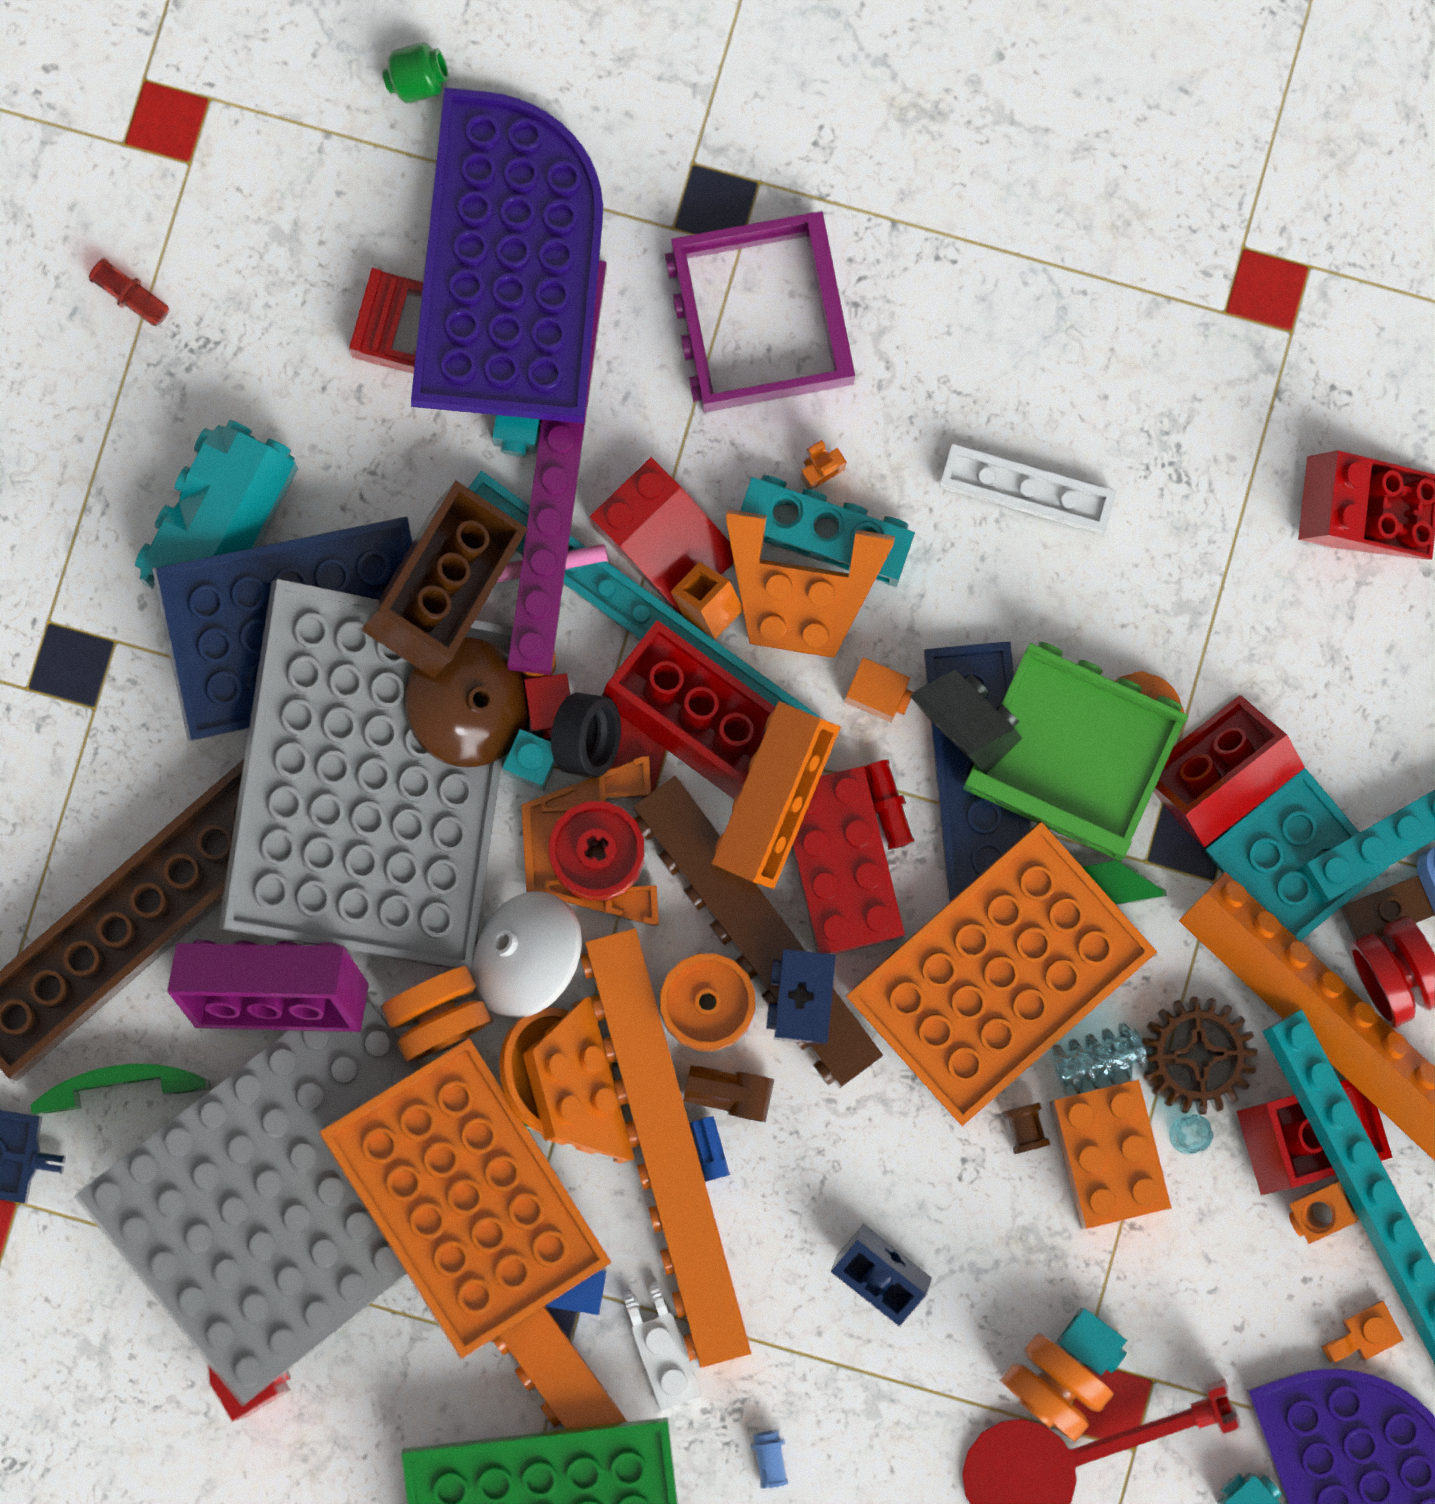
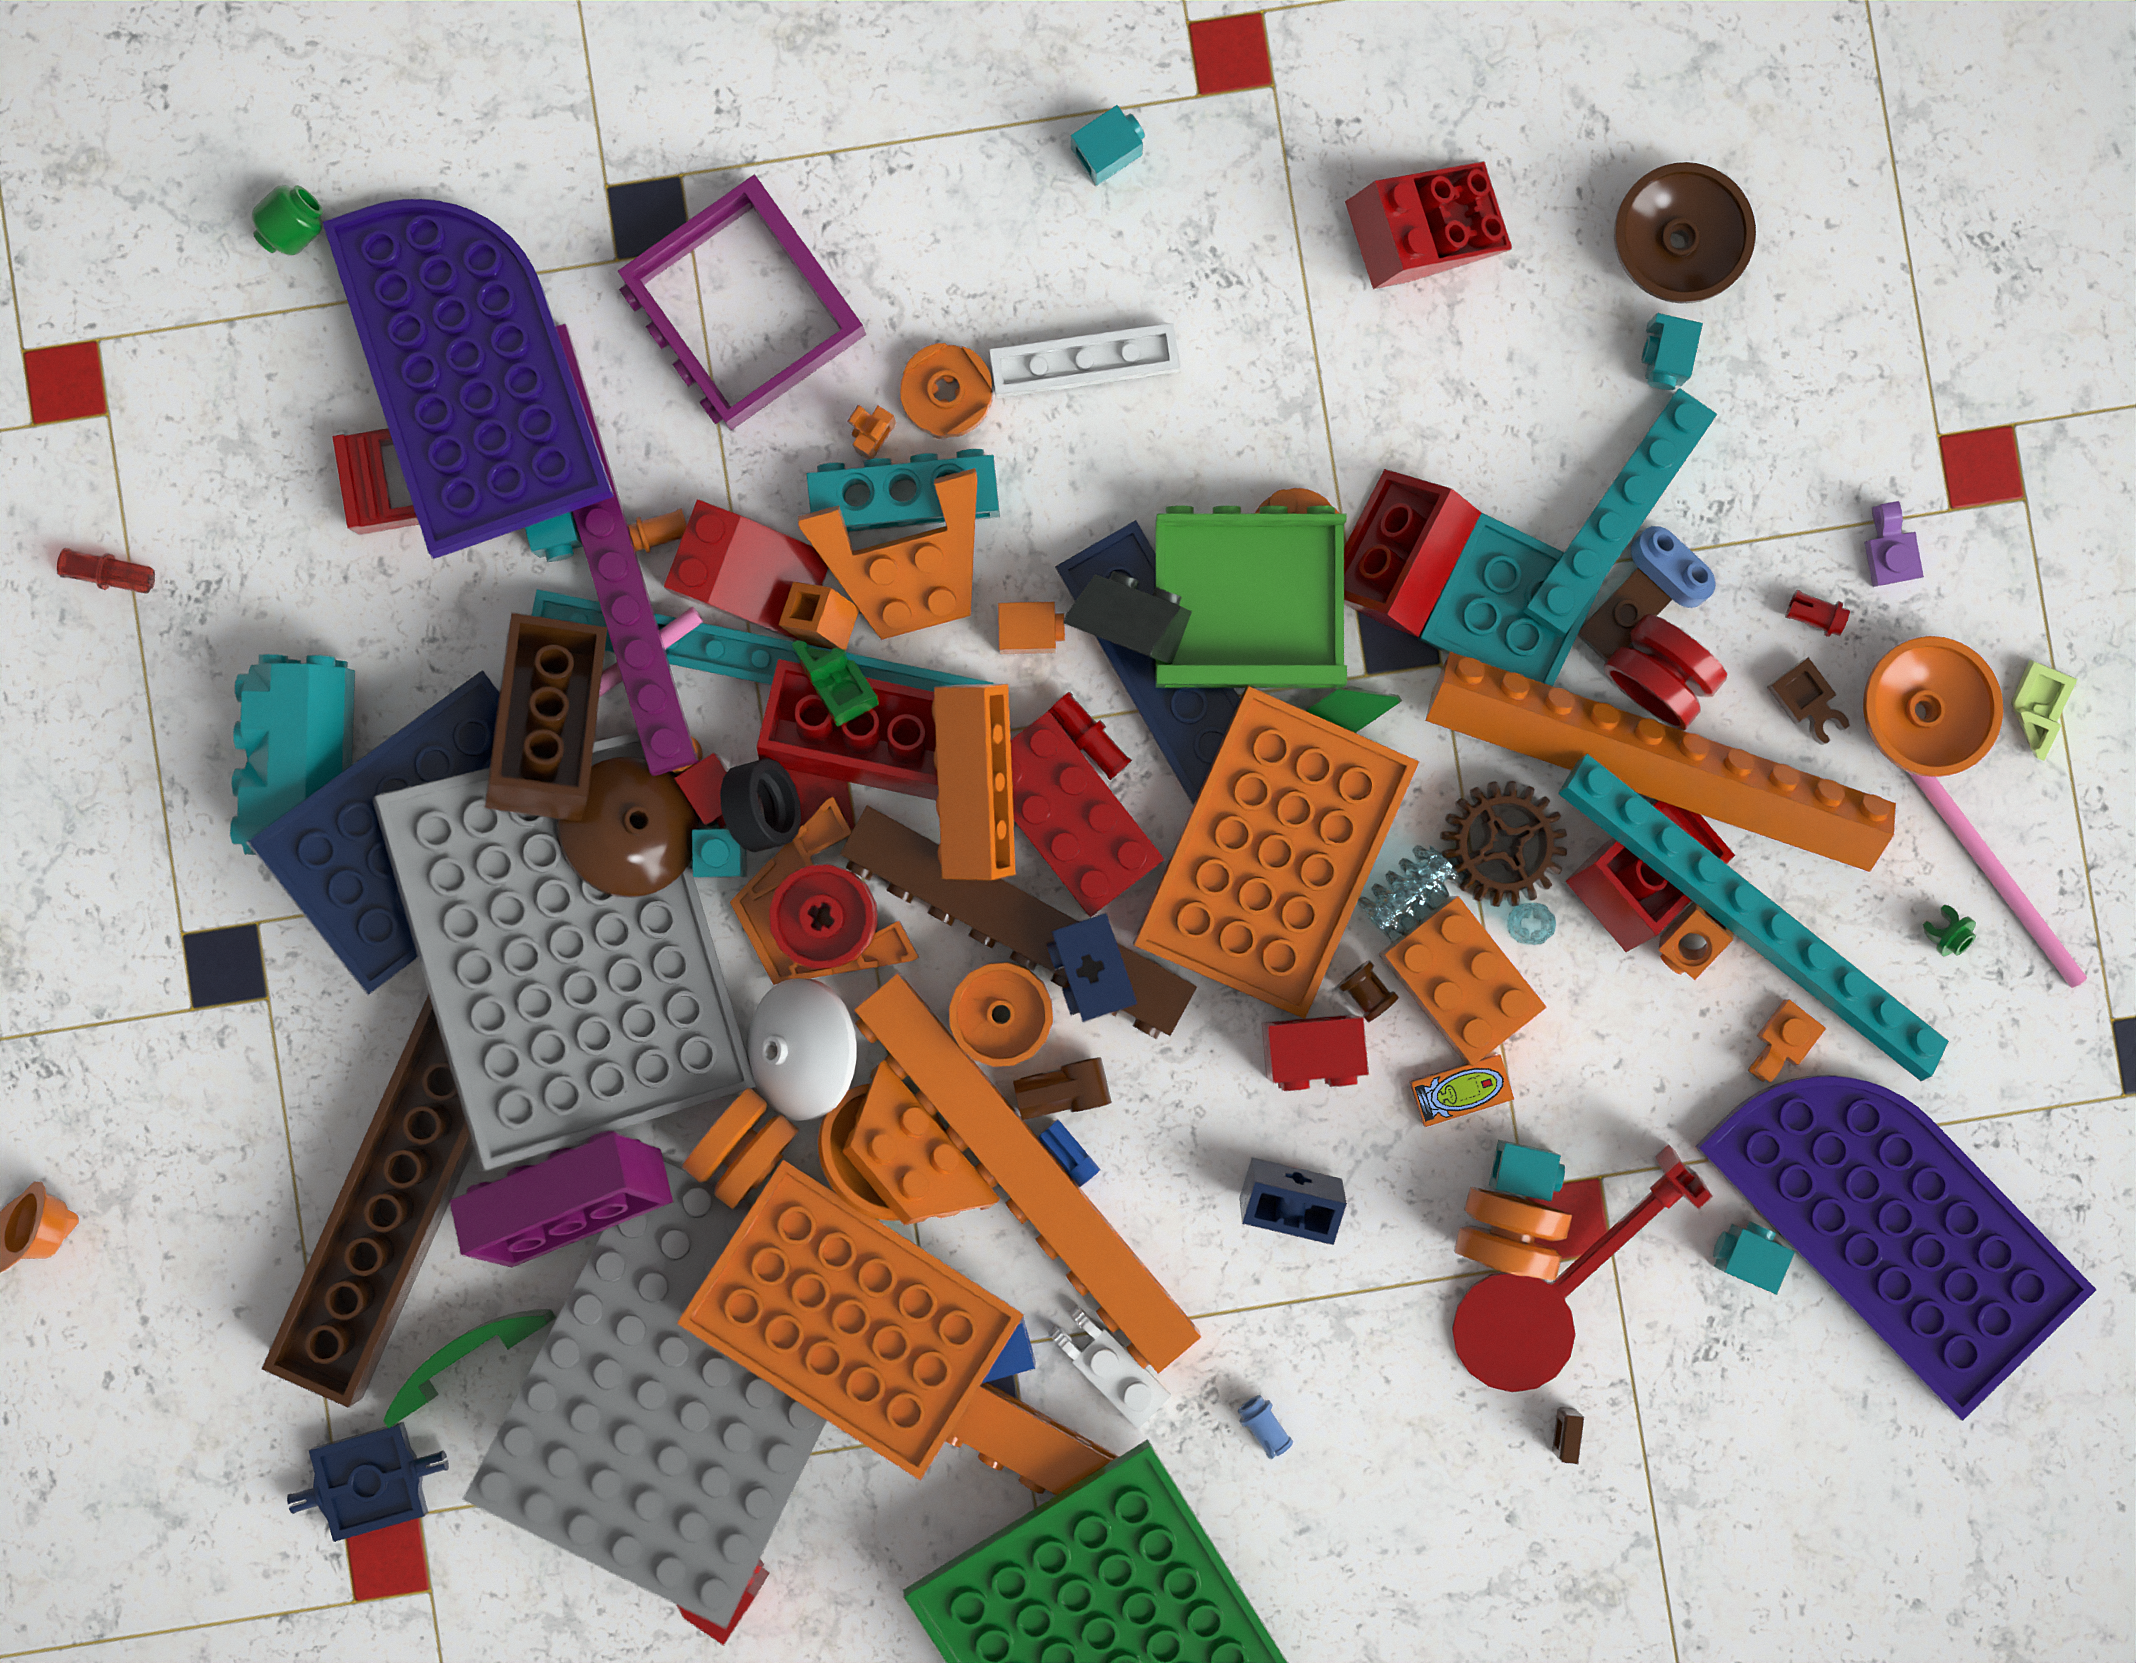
camera: 20 degrees left, 5 degrees up
(604, 467) = (657, 530): none -> orange pin
(697, 660) = (836, 681): none -> green slope
(915, 442) = (952, 364): none -> orange plate
(959, 1154) = (1314, 1050): none -> red brick
(1068, 1250) = (1461, 1090): none -> tile
(1129, 318) = (1108, 144): none -> teal brick

